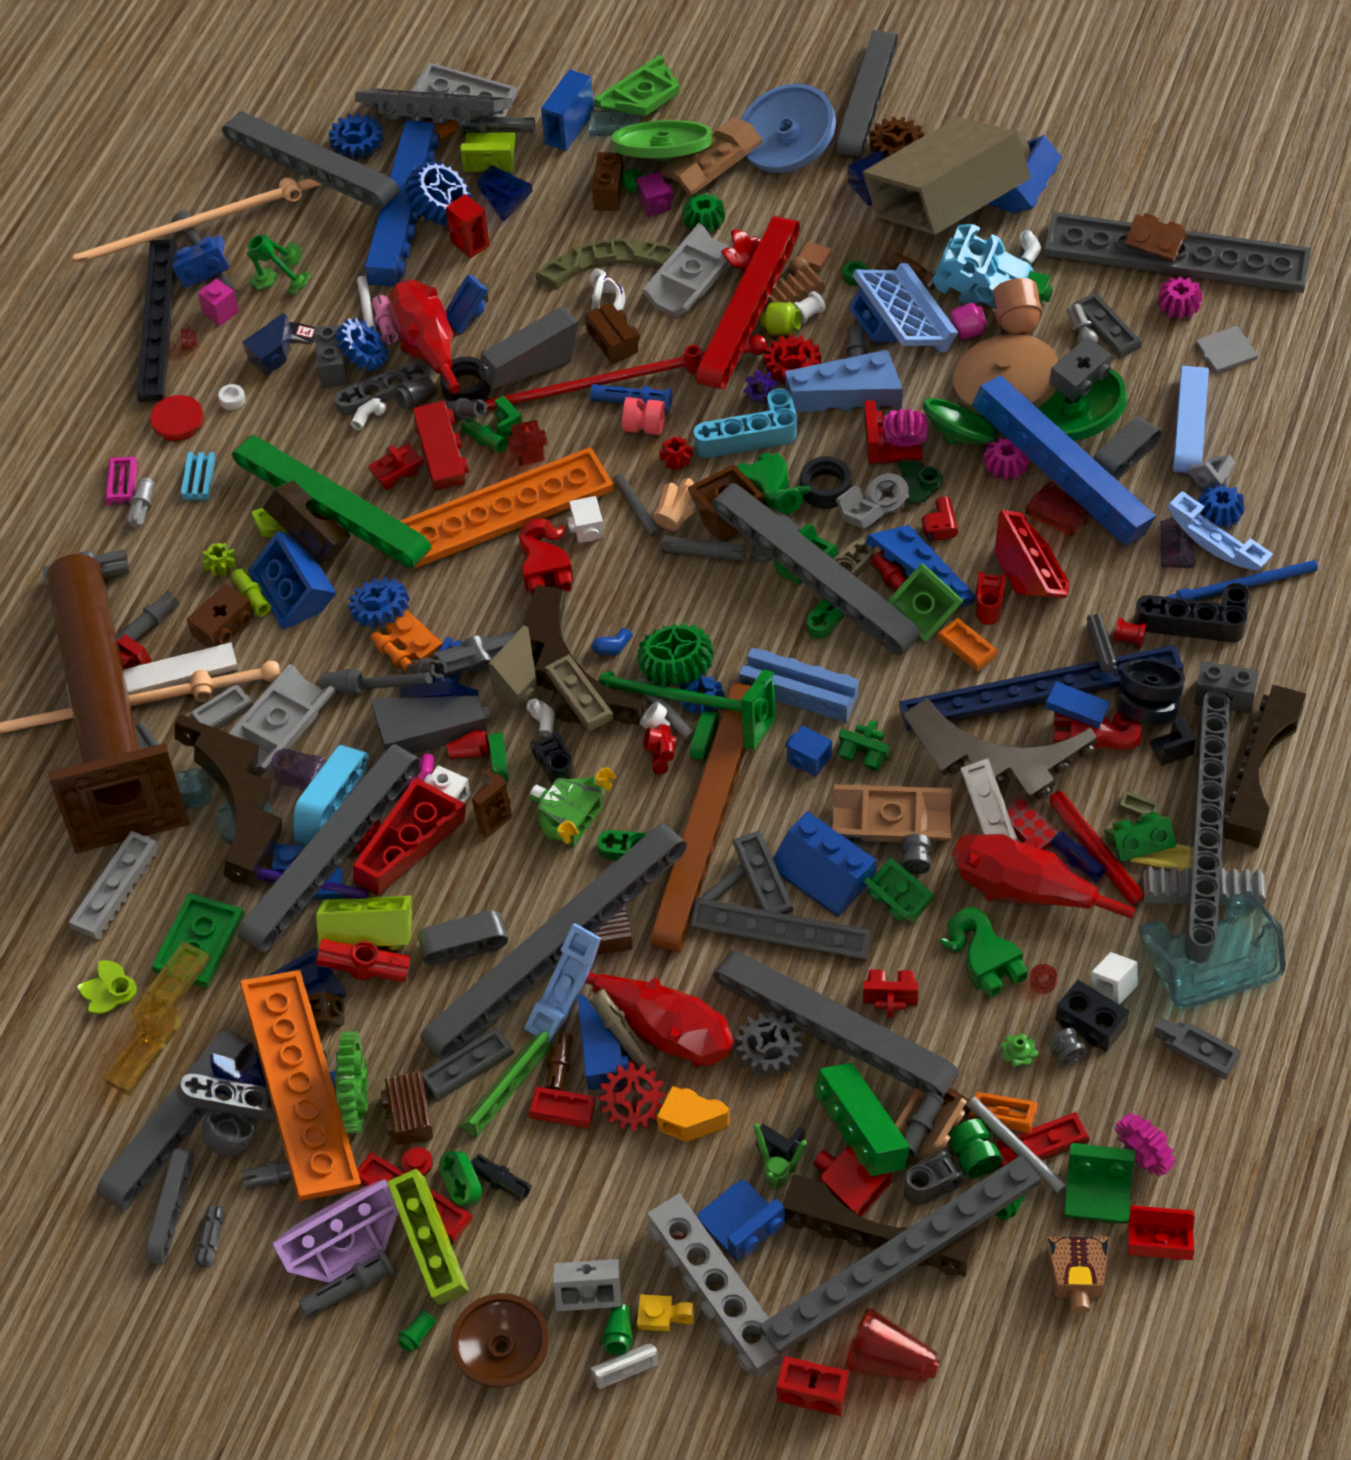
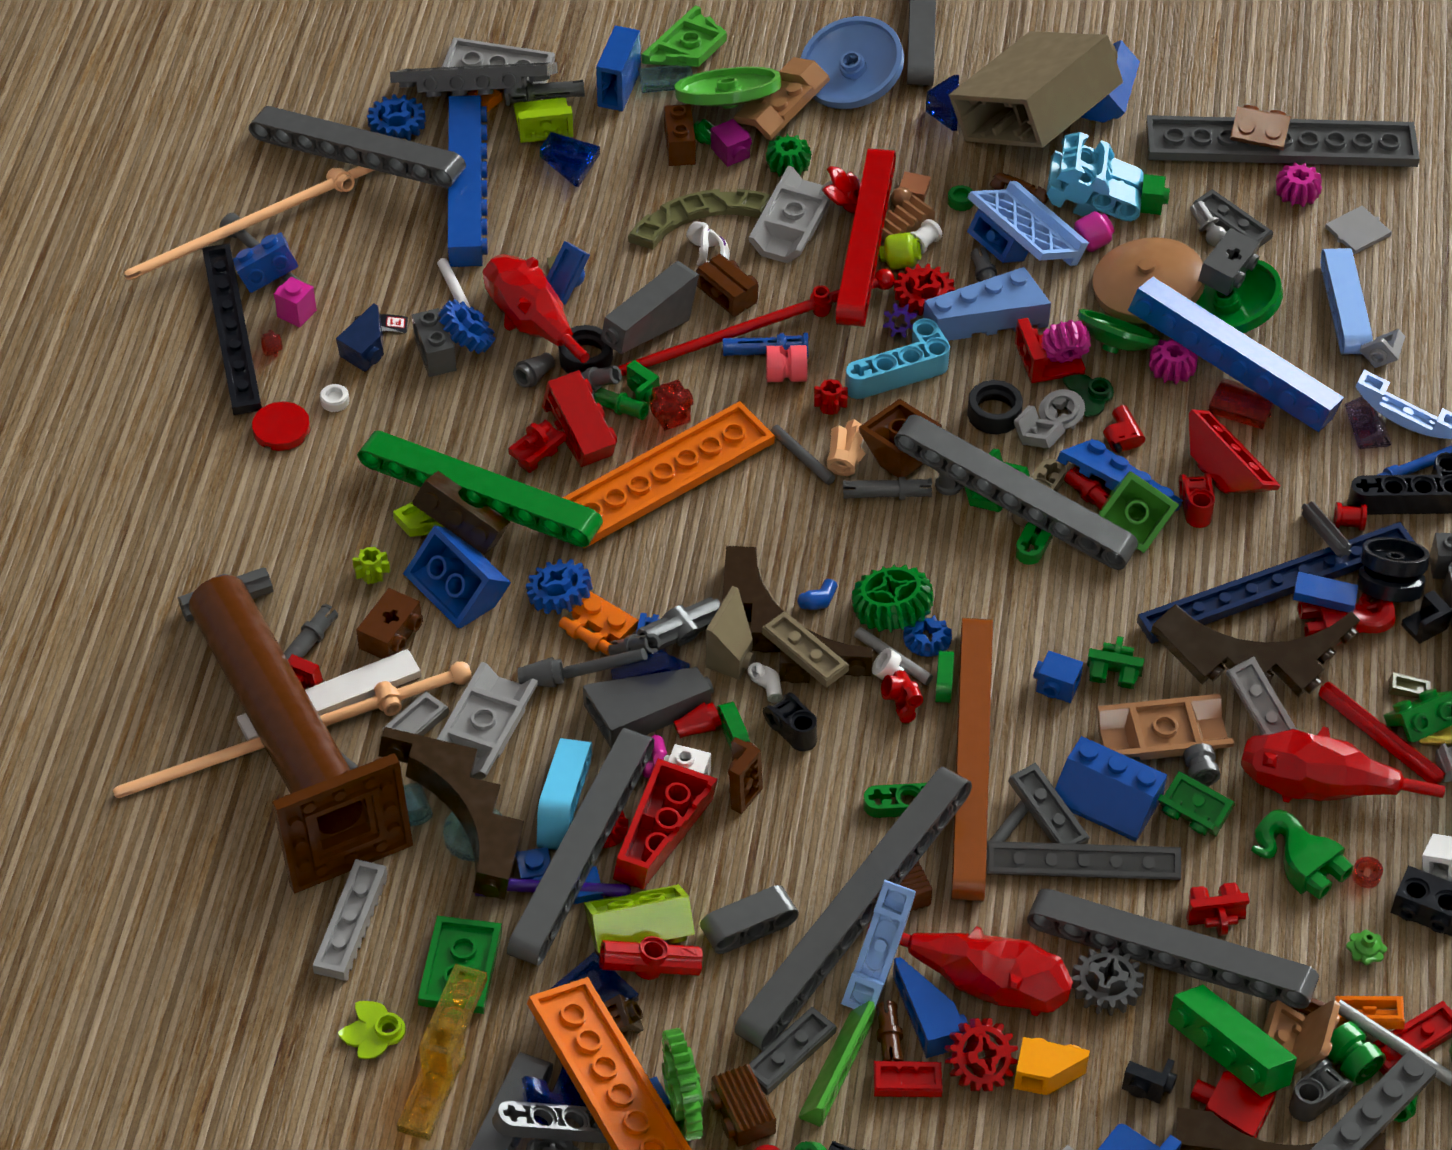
camera: 15 degrees left, 5 degrees down
(121, 497) = (240, 515): dark pink tile -> none
(140, 502) = (266, 517): light grey axle -> none
(199, 460) = (319, 465): medium azure tile -> none
(251, 591) = (404, 585): lime pin -> none
(262, 249) = (357, 247): plant -> none
(301, 771) = (521, 770): clear purple piece -> none
(364, 411) = (484, 395): white arm -> none
(381, 384) = (469, 384): dark grey beam -> none
(384, 319) = (480, 298): bright pink pin -> none
(440, 190) = (505, 165): blue gear -> none
(467, 226) = (546, 194): red brick -> none
(544, 562) = (723, 522): red hips -> none
(570, 805) = (826, 765): bright green torso -> none
(585, 519) = (756, 475): white brick -> none
(618, 1025) = (945, 979): dark tan pin -> none
(756, 705) = (997, 638): green tile -> none
(772, 480) = (940, 405): green hips -> none
(777, 1168) = (1154, 1106): bright green plant -> none
(804, 684) = (1031, 611): medium blue brick -> none
(894, 135) = (963, 59): reddish brown gear -> none
(922, 1121) = (1294, 1033): dark grey pin -> none
(967, 644) = (1189, 549): orange plate -> none
(1017, 306) = (1142, 209): nougat helmet -> none
(1029, 822) = (1308, 718): red tile -> none
(1030, 245) = (1131, 150): white arm -> none
(1067, 1047) = (1415, 936): dark grey wheel -> none
(1091, 868) = (1366, 744): clear blue pin -> none
(1128, 447) = (1293, 332): dark grey beam -> none
(1222, 505) = (1405, 378): blue gear -> none

